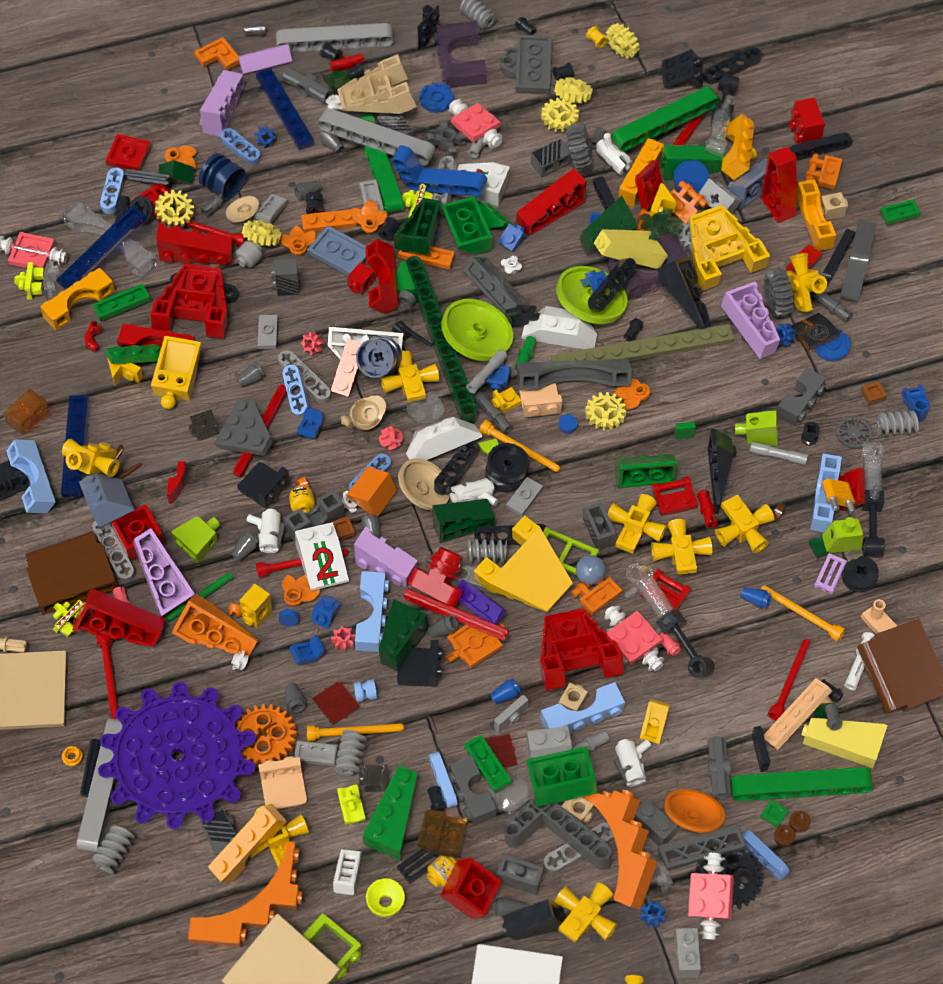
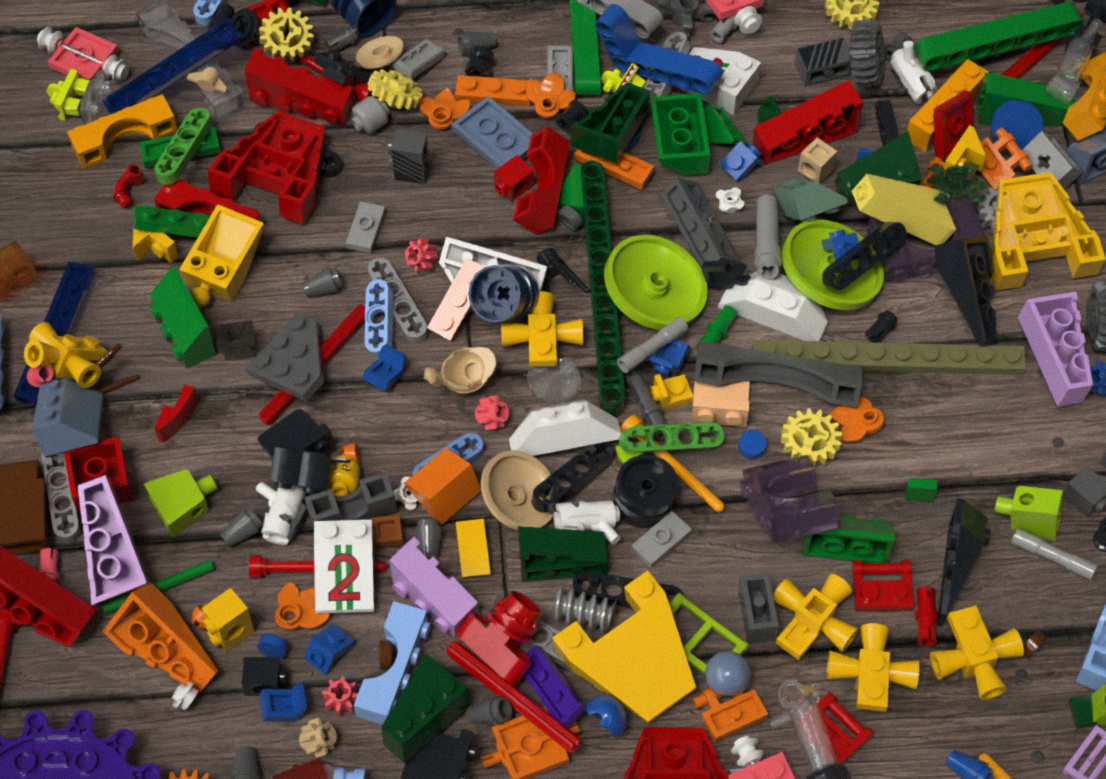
camera: 15 degrees right, 0 degrees up
(77, 475) = (34, 378): none -> coral pin
(126, 300) = (178, 144): none -> bright green beam
(130, 251) = (208, 80): none -> tan piece
(162, 418) = (181, 320): none -> green slope
(219, 227) = (339, 69): none -> black plate
(276, 498) = (300, 468): none -> black brick
(287, 635) = (262, 674): none -> black brick
(336, 667) = (317, 737): none -> tan gear
(364, 606) = (385, 654): none -> reddish brown tile
(402, 527) = (473, 548): none -> yellow slope
(515, 430) = (671, 435): none -> bright green beam
(521, 199) = (768, 110): none -> dark green tile
(521, 608) = (611, 711): none -> blue hair
(547, 295) = (767, 237): none -> light grey piece
(563, 254) = (806, 198): none -> sand green slope
(564, 227) = (817, 161): none -> tan brick
(595, 452) = (783, 517): none -> clear purple arch

